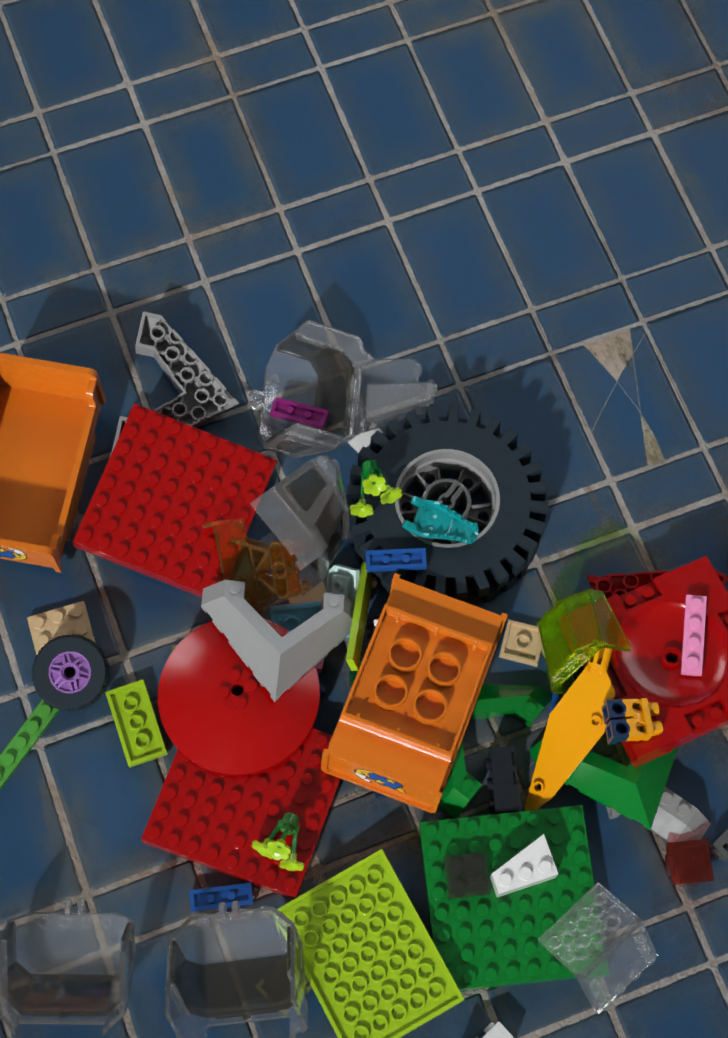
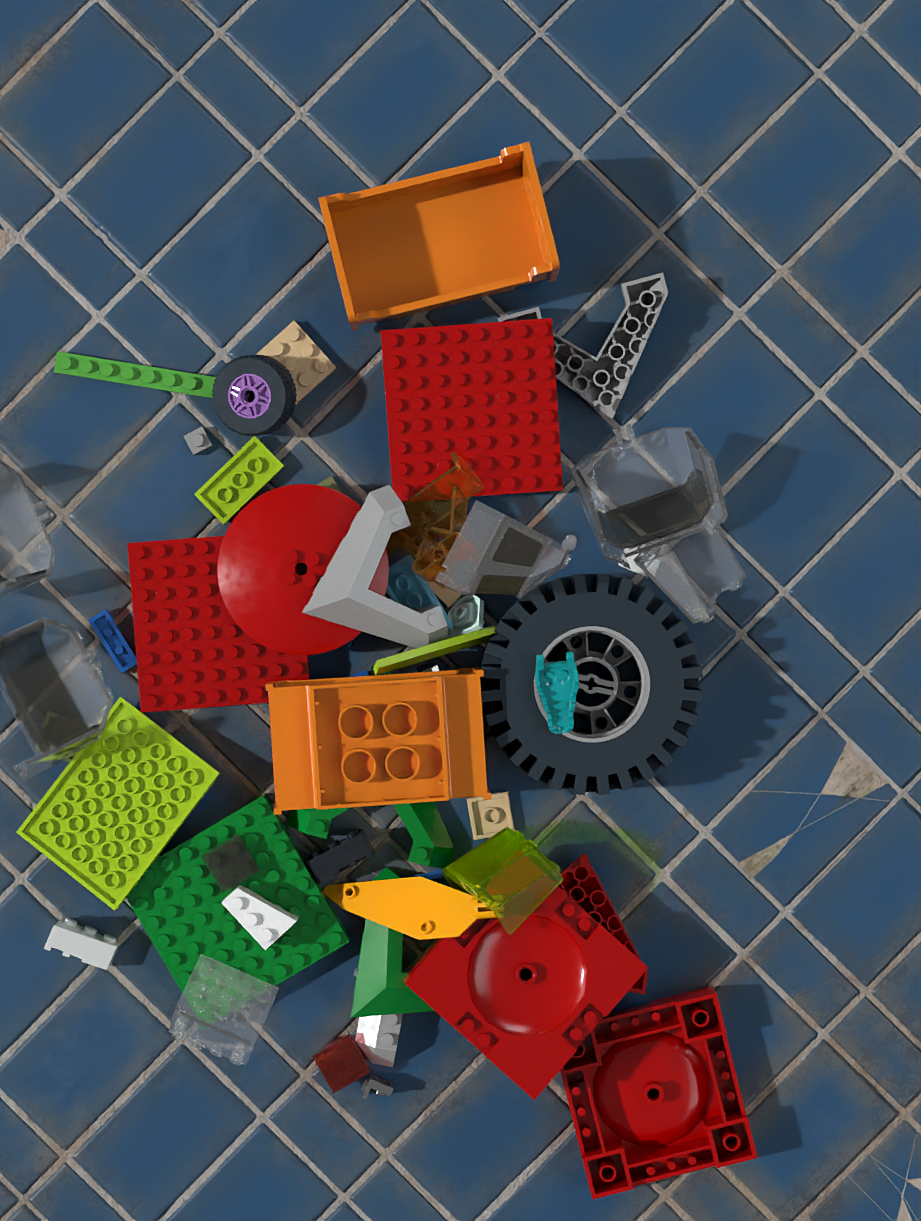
camera: 65 degrees right, 20 degrees up
(84, 744) = (198, 440): none -> light grey plate
(279, 849) = (199, 678): lime plant -> none
(299, 413) = (628, 487): magenta plate -> none
(373, 483) = (559, 611): lime plant -> none
(396, 560) = (499, 663): blue plate -> none
(630, 720) = (440, 969): hips -> none
(693, 635) = (555, 988): bright pink plate -> none

